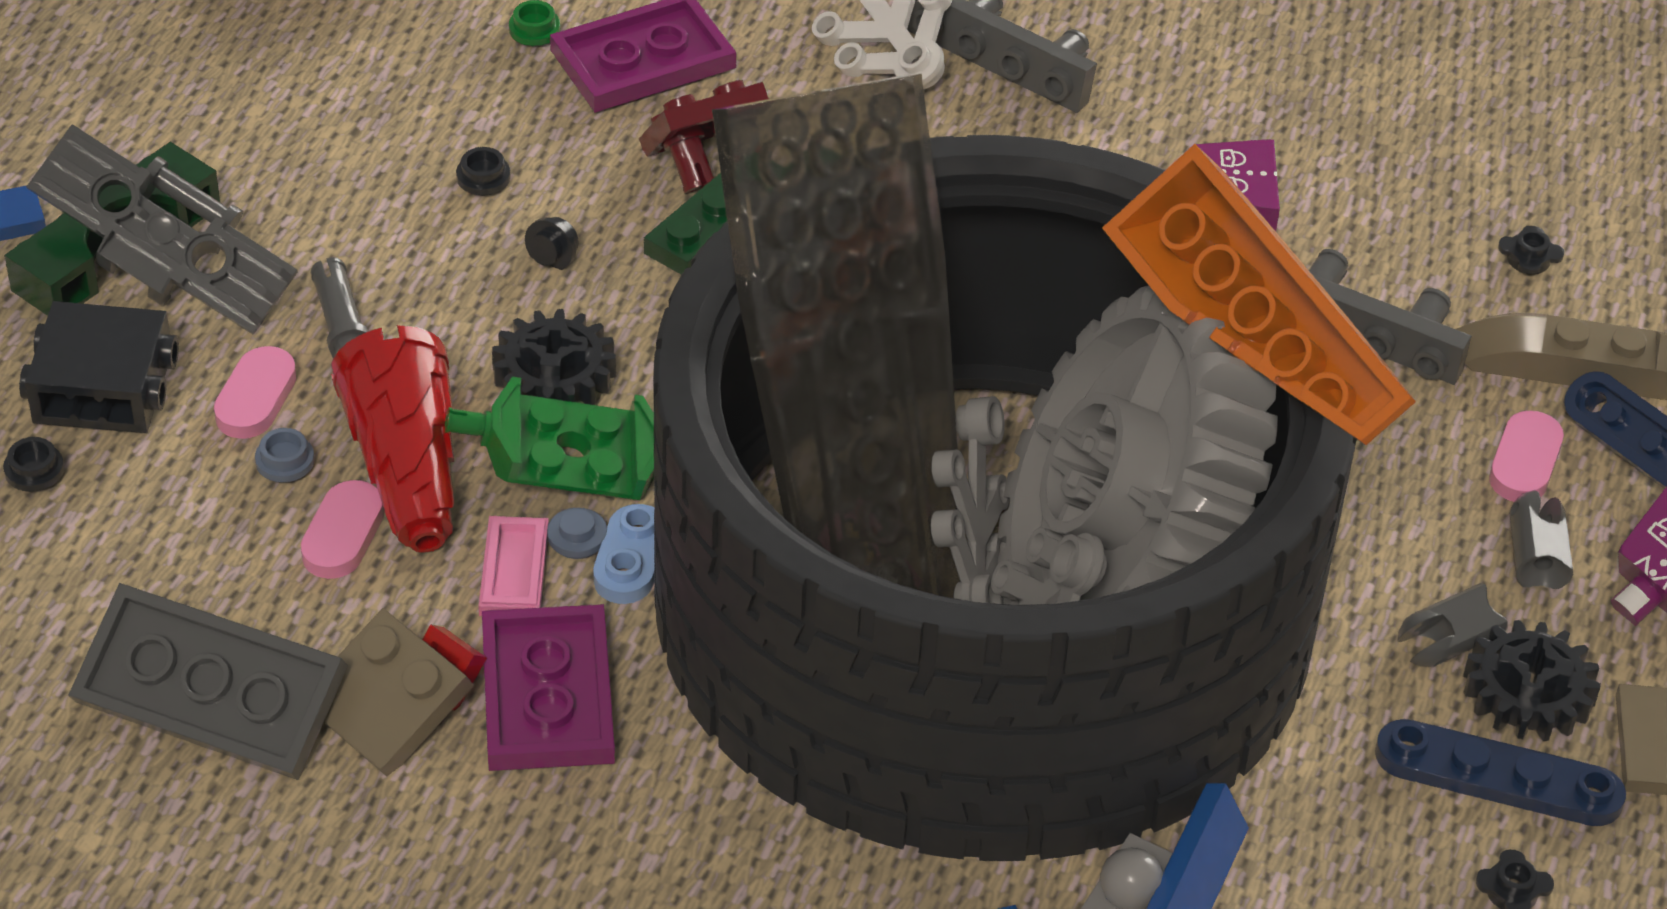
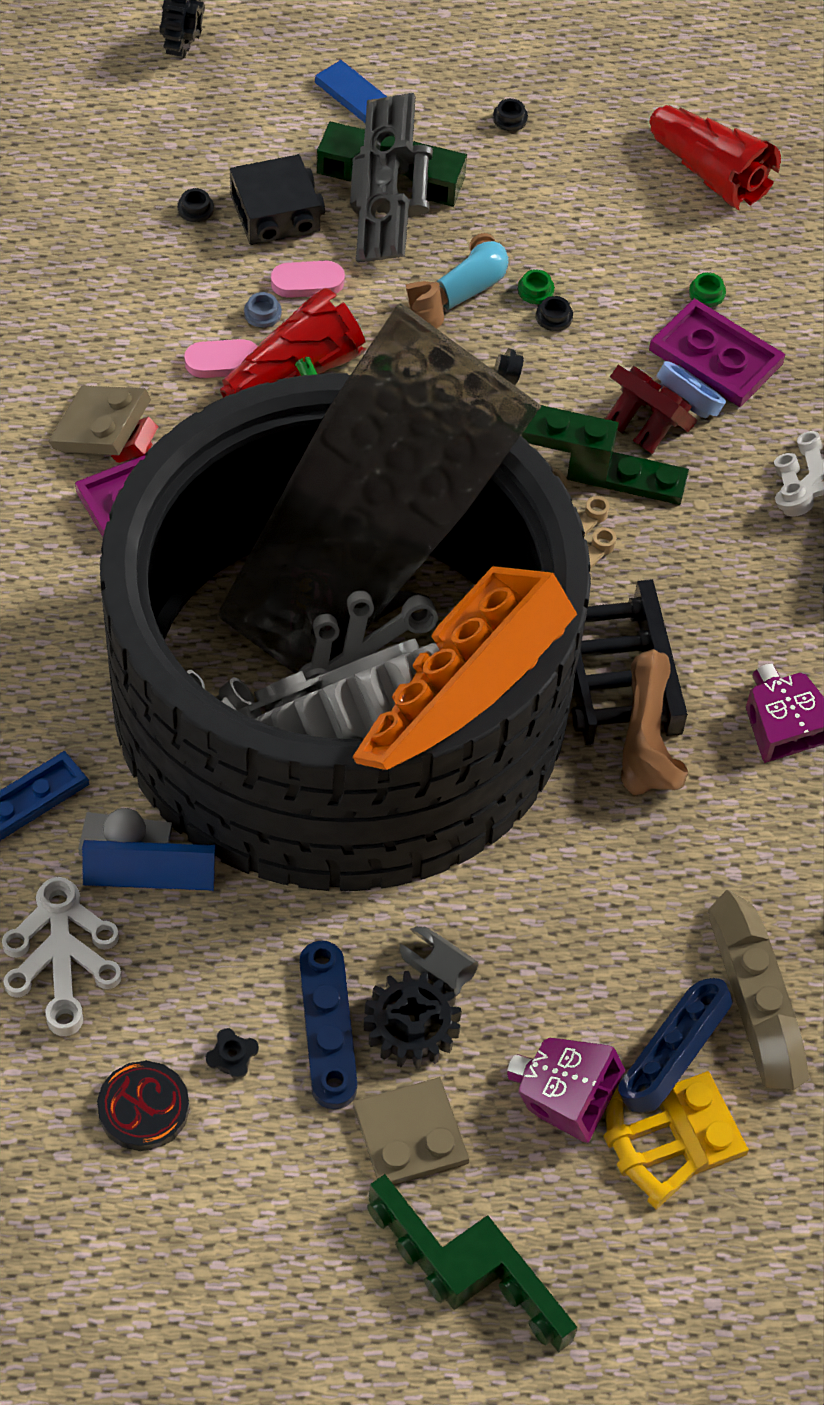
camera: 65 degrees right, 10 degrees up
(103, 91) = (510, 115): none -> black plate
(208, 680) = (66, 339): dark grey plate -> none
(337, 304) = (371, 302): dark grey pin -> none
(373, 205) = (478, 272): none -> medium azure piece
(426, 172) = (535, 286): none -> green plate
(701, 87) = (699, 395): none -> light blue plate
(1402, 336) = (698, 845): dark grey plate -> none
(1526, 454) = (636, 971): bright pink tile -> none
(1540, 542) = (541, 996): dark grey piece -> none

